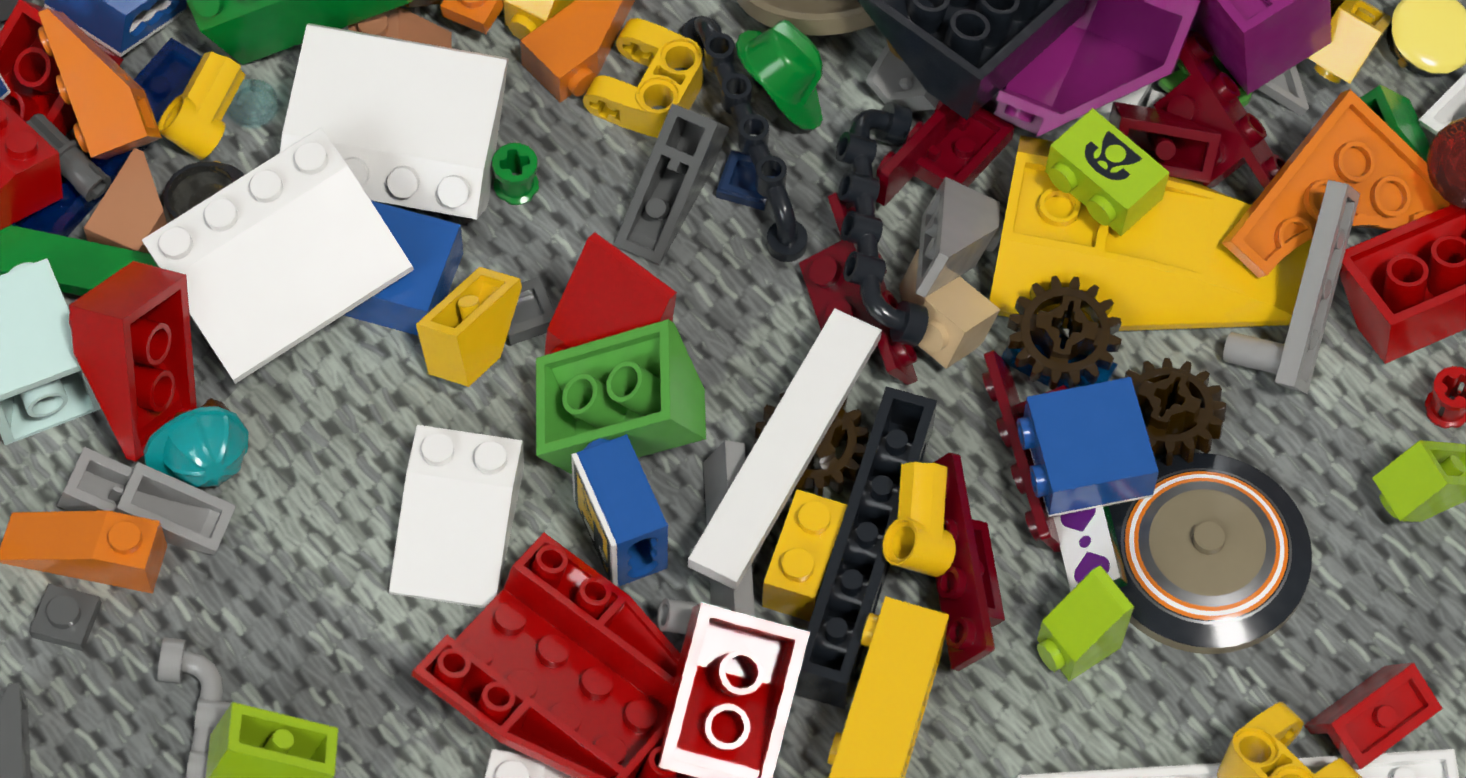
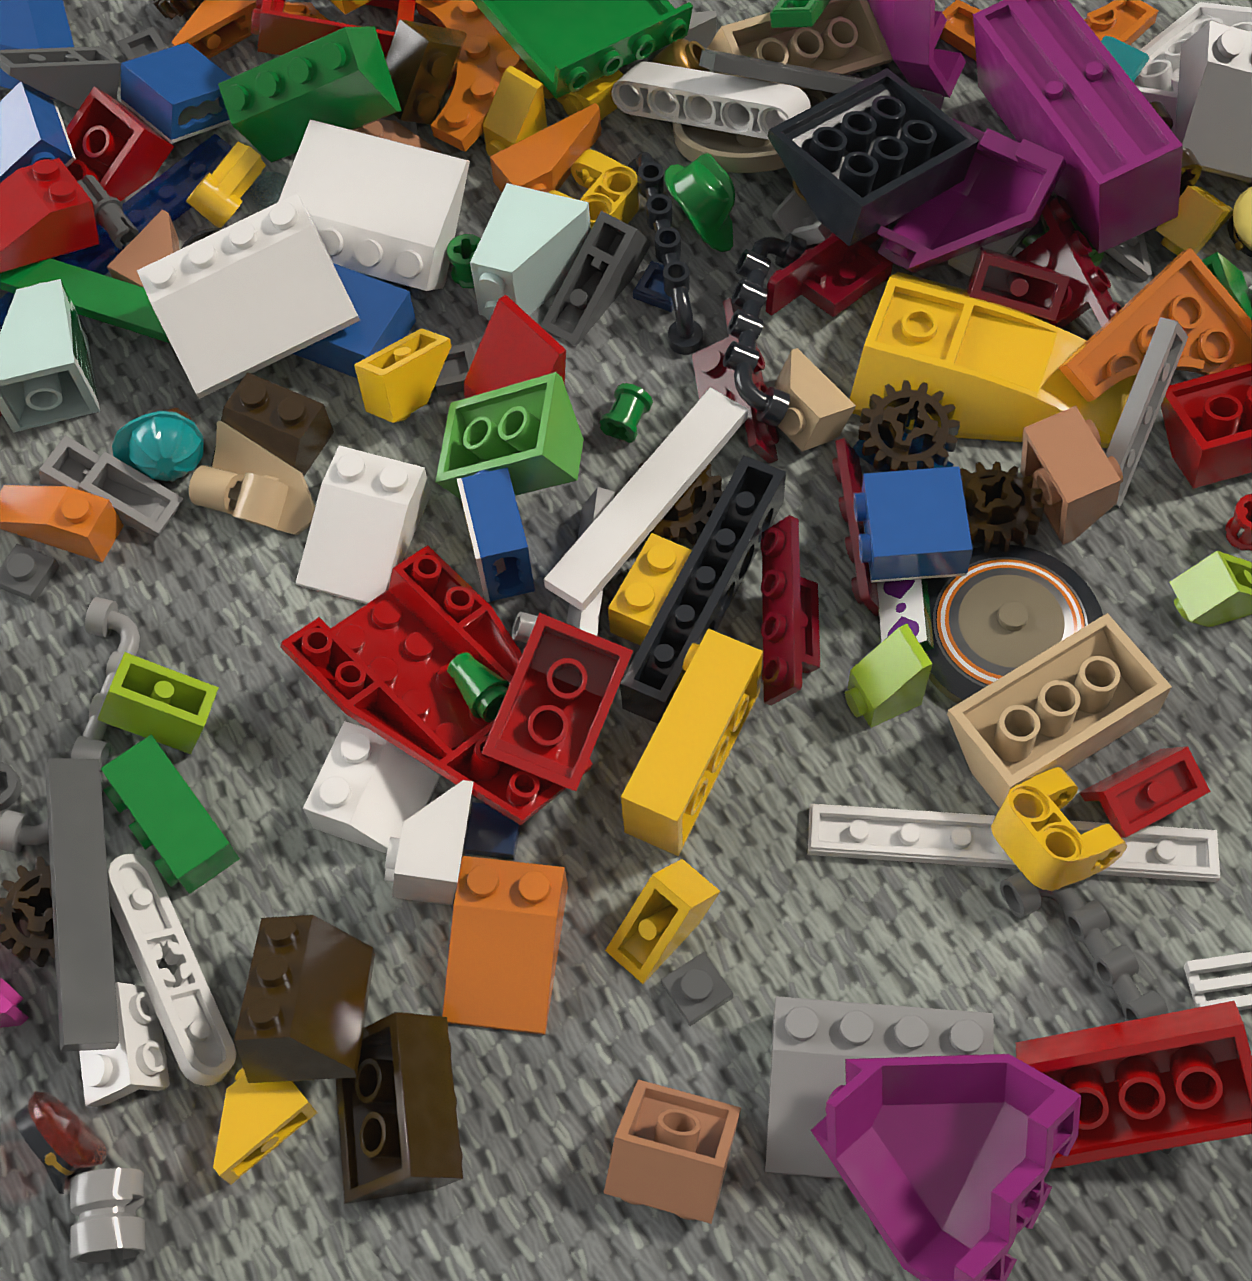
camera: 15 degrees right, 0 degrees up
(106, 101) = (141, 167): orange slope -> none
(136, 350) = (115, 358): red slope -> none
(317, 480) = (252, 485): none -> tan panel
(324, 419) = (279, 421): none -> dark brown slope
(591, 159) = (528, 248): none -> light aqua slope
(636, 691) = (479, 686): none -> green cone
(736, 343) = (626, 412): none -> green bush
(918, 535) = (749, 581): yellow piece -> none
(955, 234) = (826, 341): light grey slope -> none
(1106, 172) = (963, 297): lime brick -> none
(1251, 364) = (1071, 471): none -> nougat slope
(1270, 636) = (1057, 707): none -> tan slope

